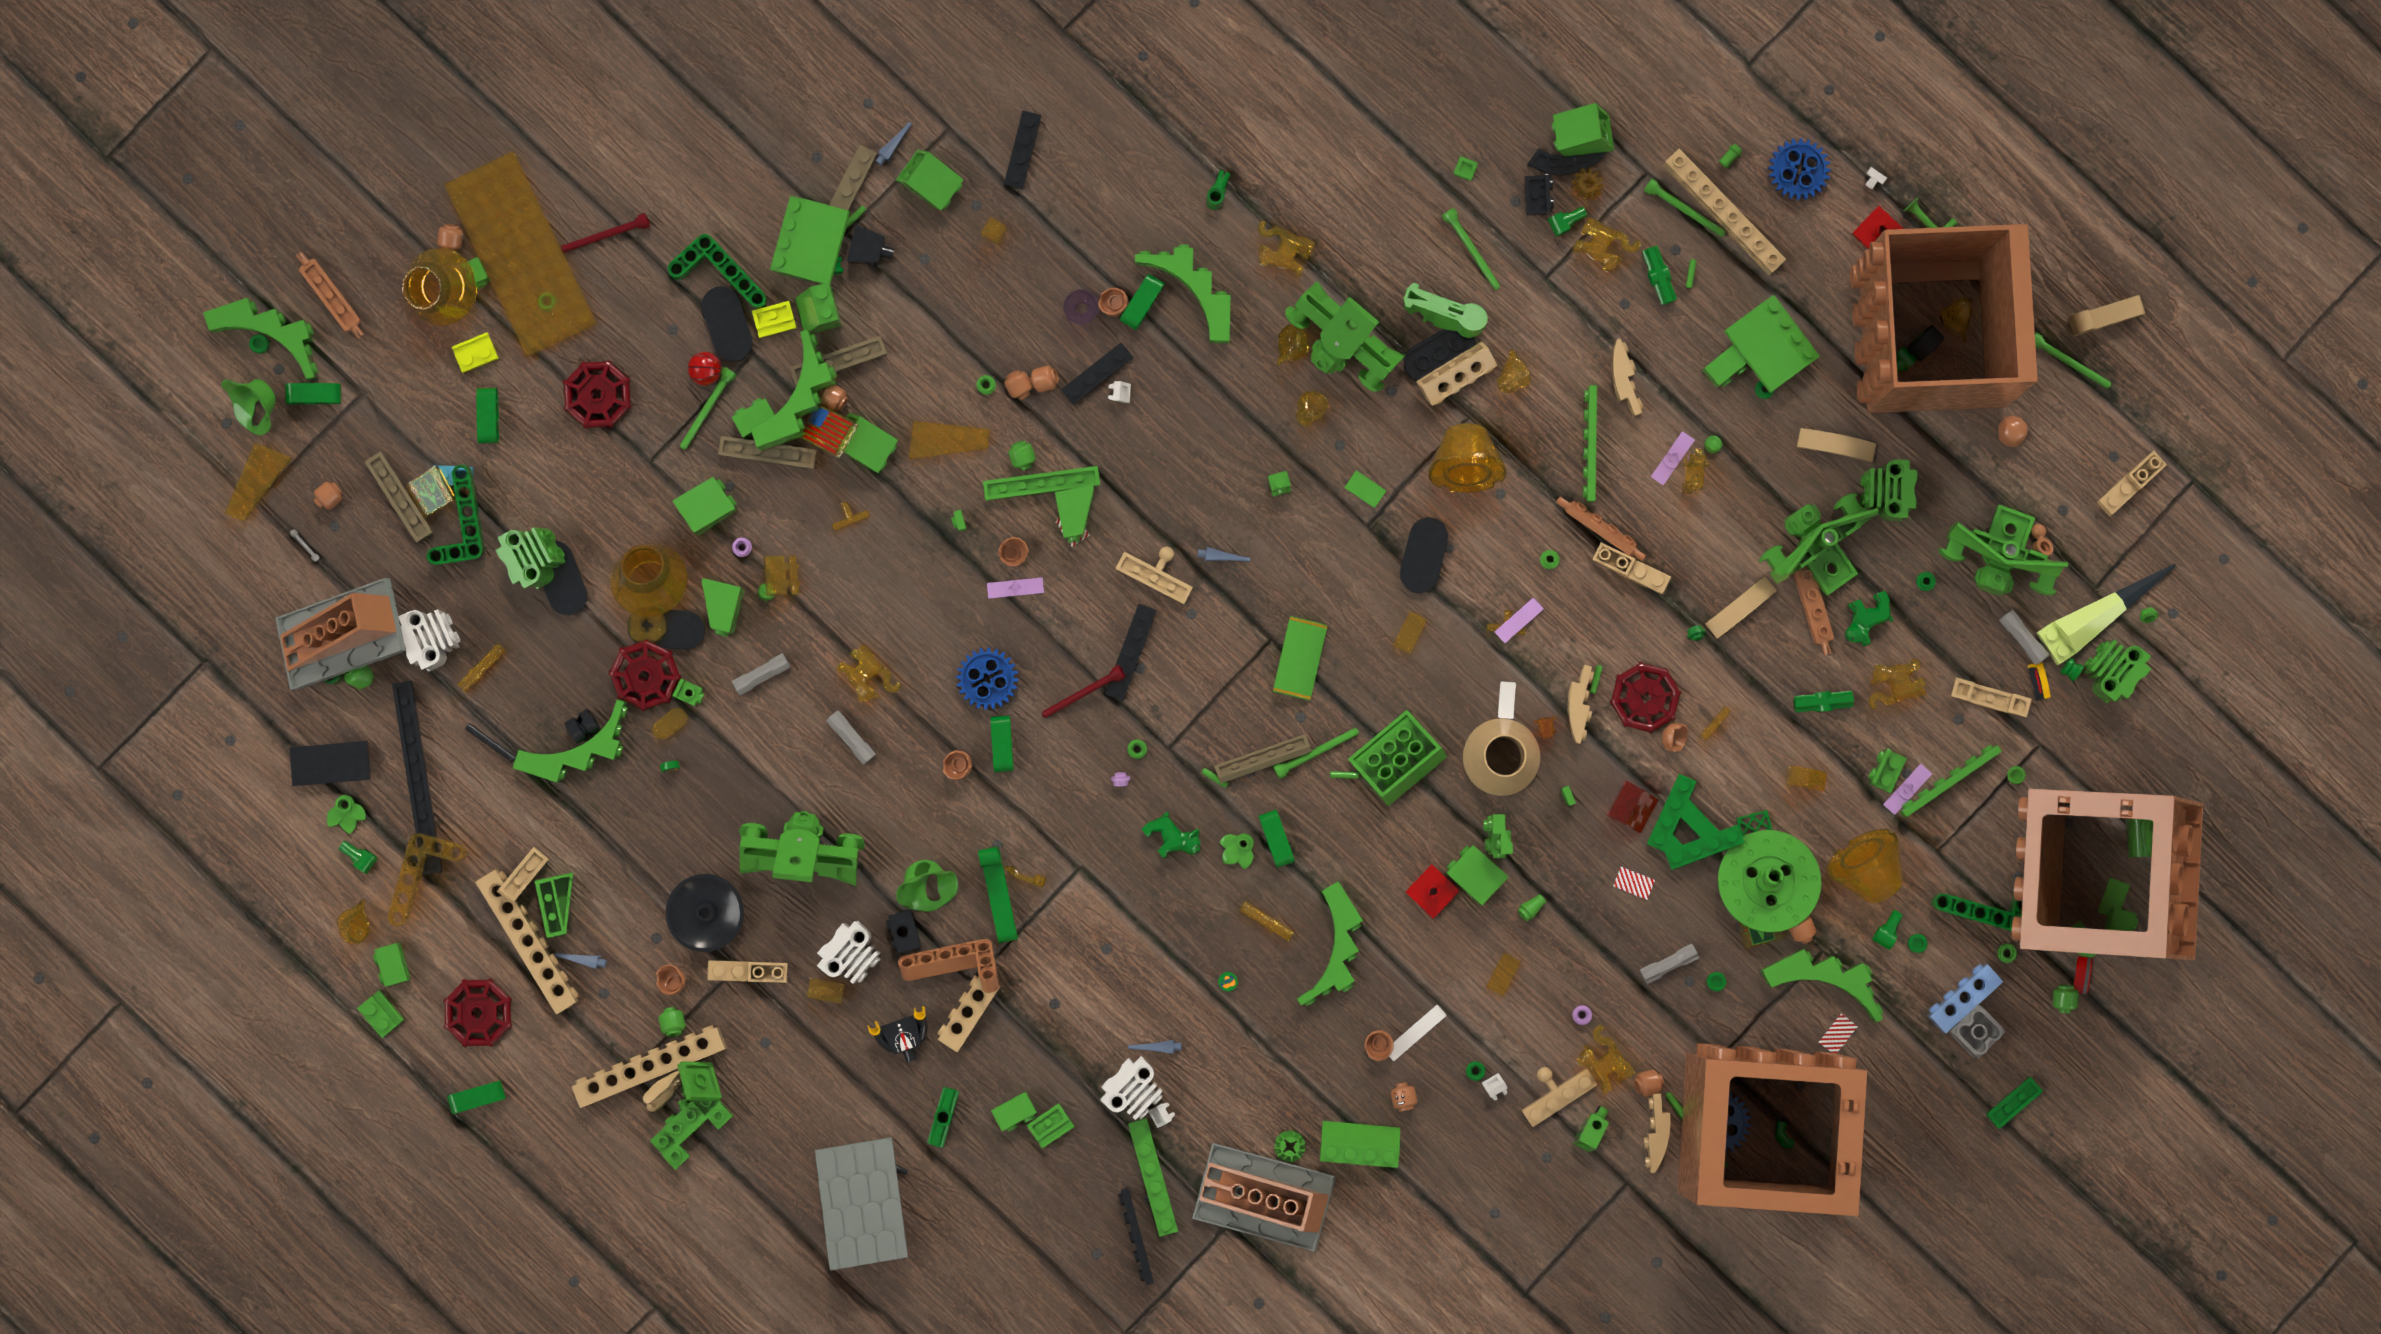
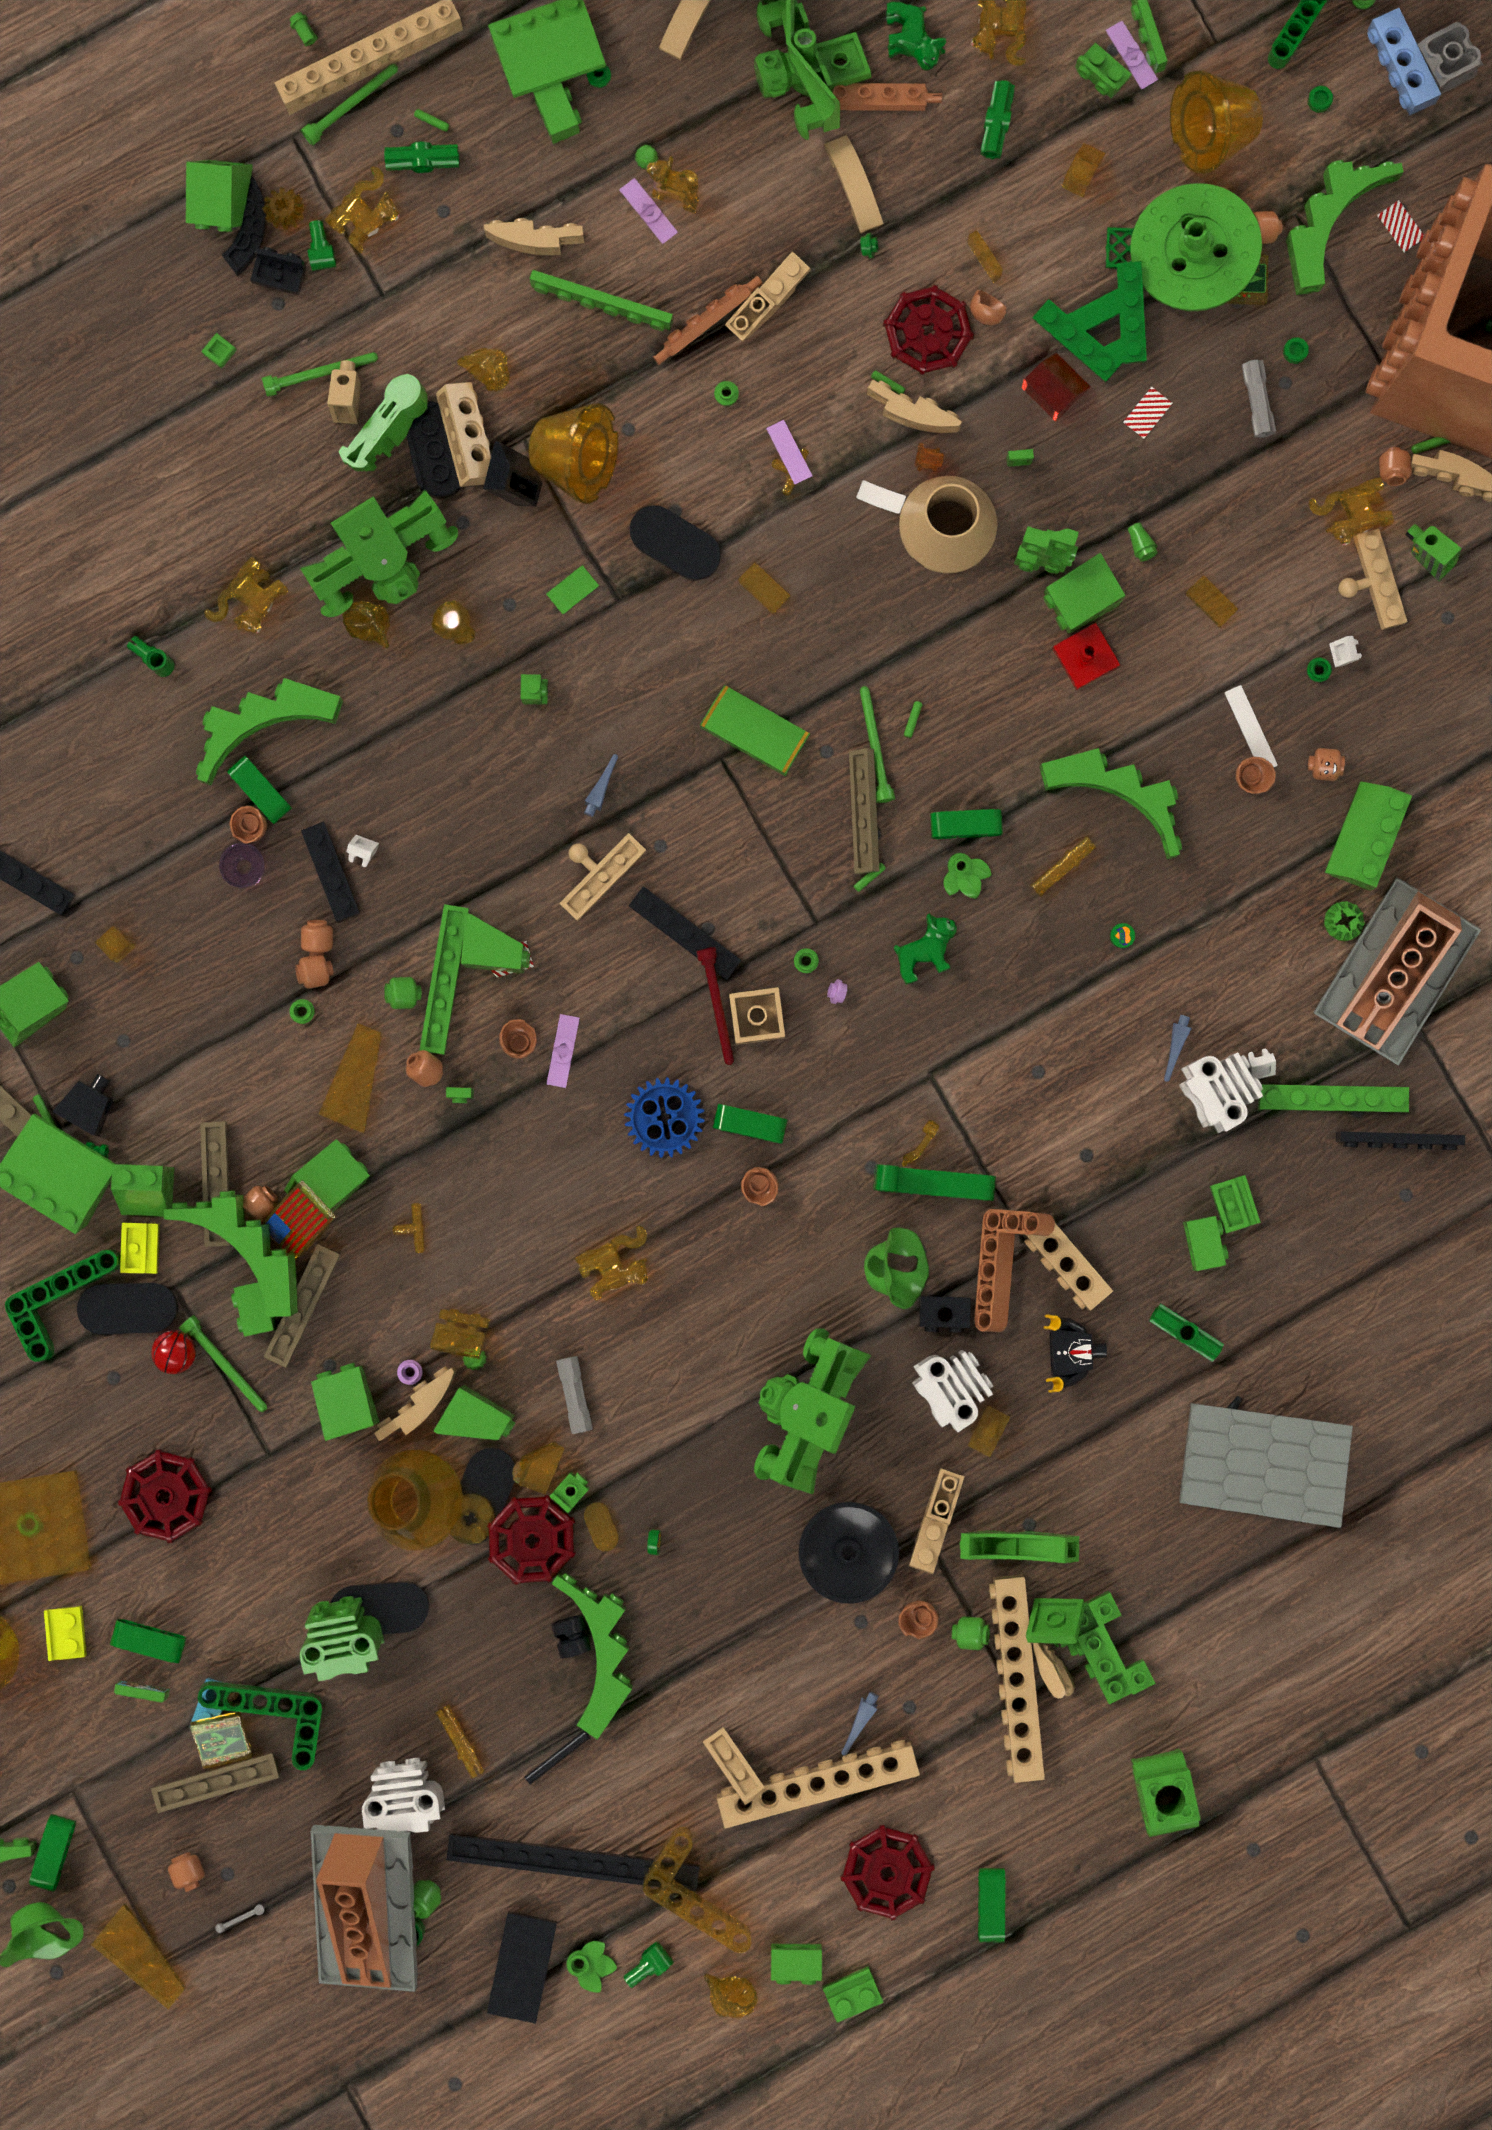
camera: 70 degrees left, 0 degrees up
(449, 422) = (141, 1691): none -> bright green tile
(554, 903) = (780, 1736): bright green wedge -> none
(613, 1195) = (1150, 1776): none -> bright green piece
(699, 663) = (538, 1467): none -> clear yellow slope
(724, 565) = (426, 1400): none -> tan slope
(746, 1037) = (1020, 1546): none -> bright green arch
(850, 737) = (685, 1307): light grey axle -> none
(970, 489) = (424, 1068): none -> nougat head
(1083, 724) = (757, 1016): none -> tan brick
(1397, 757) = (912, 648): bright green slope -> none
(1434, 418) = (512, 477): none -> black slope
(1453, 275) = (344, 394): none -> tan torso
(1588, 1017) = (1289, 514): lavender plate -> none
(1886, 934) = (1299, 130): green pin -> none

